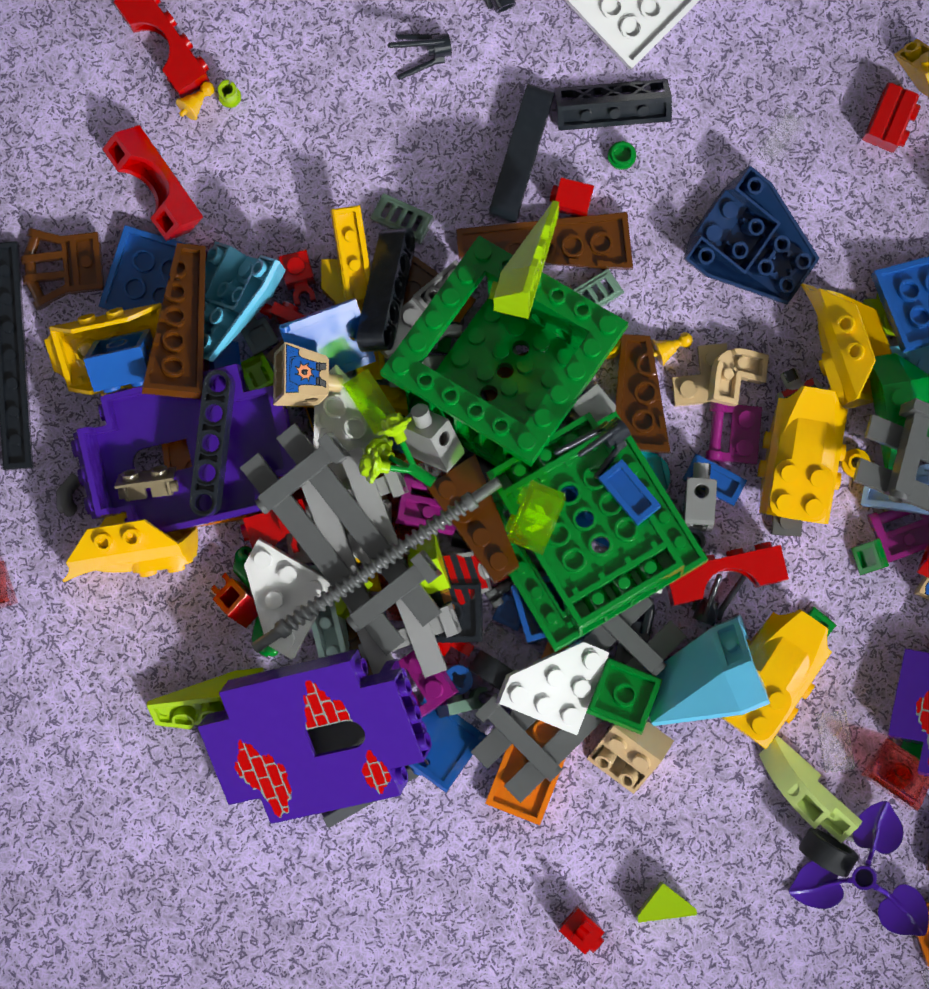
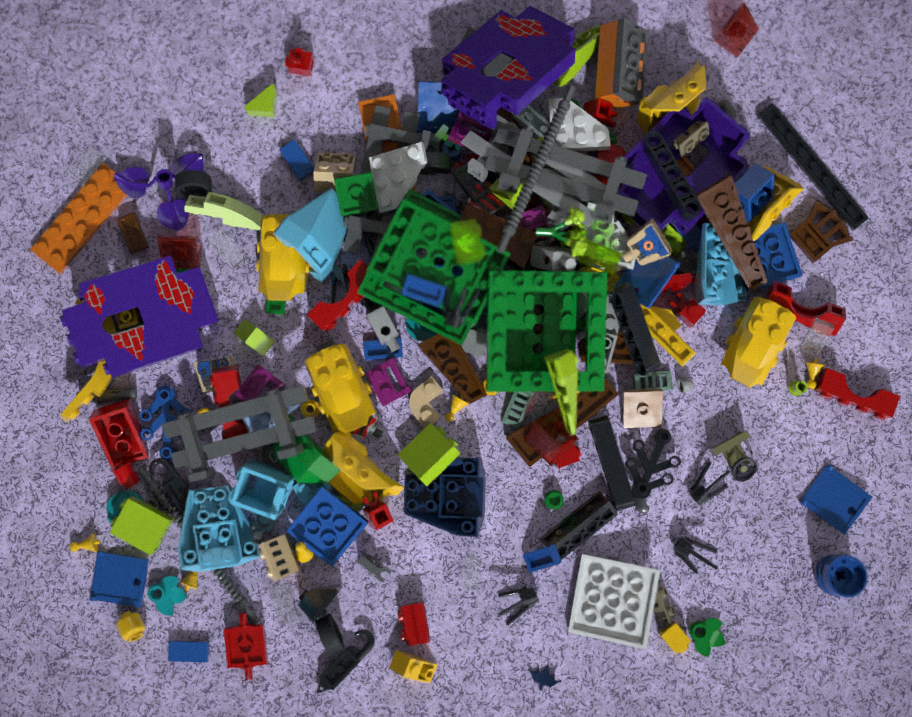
camera: 145 degrees right, 0 degrees up
(164, 137) = (816, 337): none -> clear plate
(165, 643) = (621, 63): none -> piece
(244, 179) = (757, 341): none -> yellow slope
(362, 64) = (735, 456): none -> olive piece
(364, 189) = (684, 384): none -> light grey hinge
(438, 193) = (642, 408): none -> plate
(477, 116) = (650, 467): none -> black plant
(517, 86) = (641, 505): none -> dark grey arm
(581, 227) = (550, 439): none -> clear red slope
(668, 801) = (297, 160): none -> blue tile
(685, 92) = (542, 558): none -> blue tile
(730, 369) = (414, 413): tan plate -> none
(732, 59) = (527, 598): none -> black plant
(742, 307) = (429, 453): none -> lime brick
(854, 276) = (376, 512): none -> red brick
(869, 556) = (269, 361): green tile -> none
(871, 603) = (254, 337): none -> lime slope
(901, 223) = (370, 564): none -> dark grey plate

